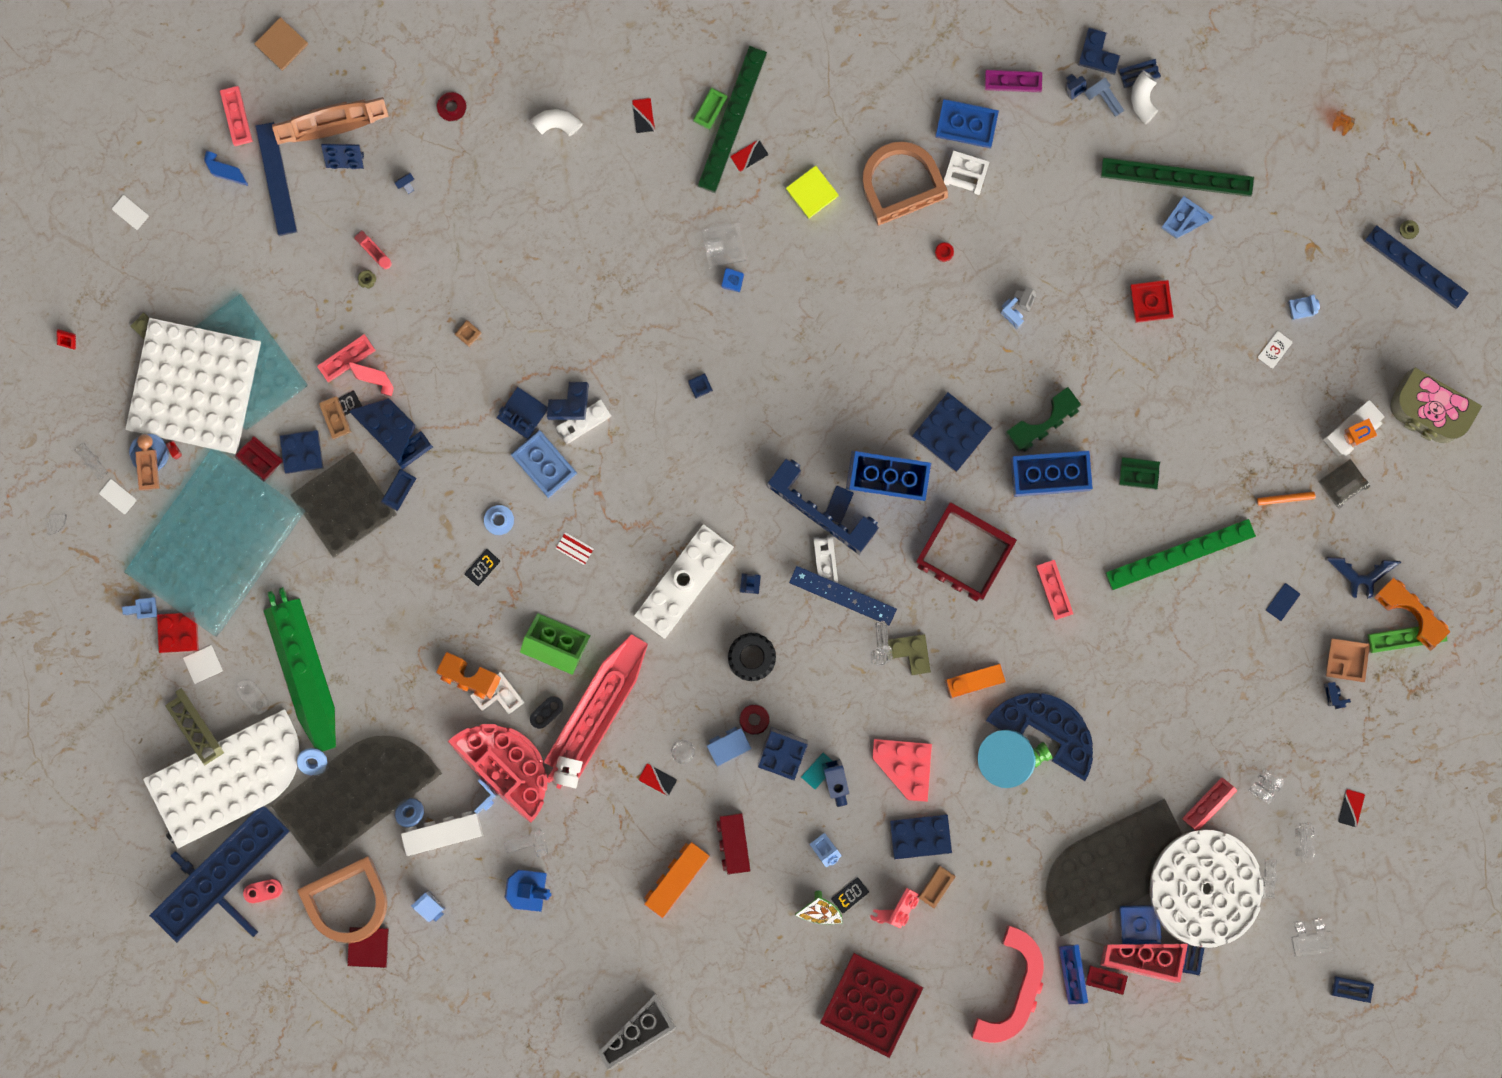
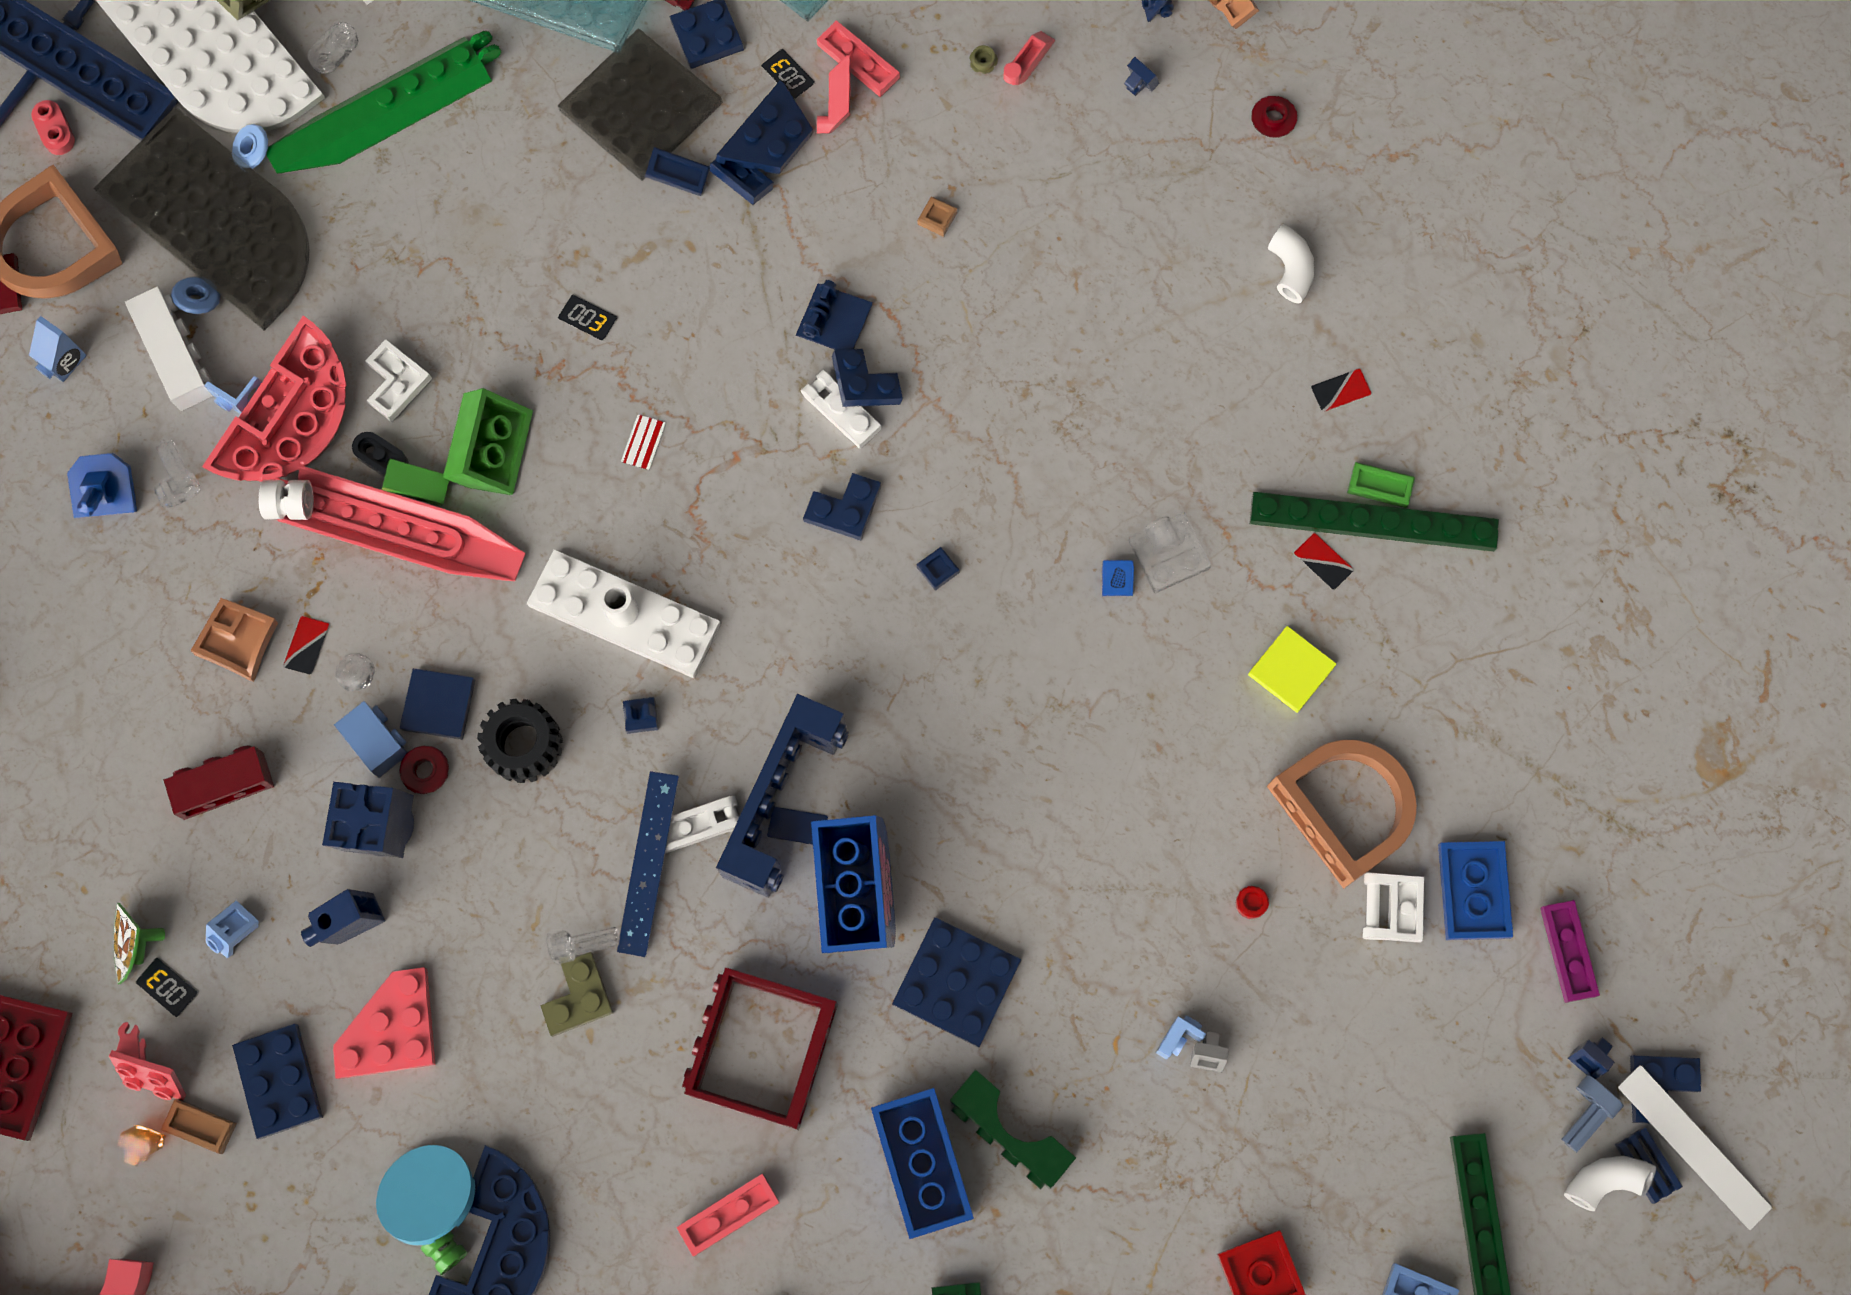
camera: 80 degrees right, 10 degrees down
(335, 417) = (766, 63): medium nougat plate -> none
(482, 683) = (417, 306): orange arch -> none
(505, 527) = (666, 335): light blue piece -> none
(543, 464) = (763, 367): medium blue tile -> none
(571, 692) = (415, 482): none -> bright green tile
(645, 820) = (235, 638): none -> nougat plate
(653, 431) = (845, 515): none -> dark blue plate
(677, 879) = (148, 706): orange brick -> none
(714, 704) = (437, 704): none -> dark blue tile
(814, 775) = (354, 880): teal sticker -> none
(939, 920) = (140, 1143): none -> clear orange tile
(975, 681) = (548, 1112): orange slope -> none
(1135, 45) = (1695, 1147): none -> white sticker

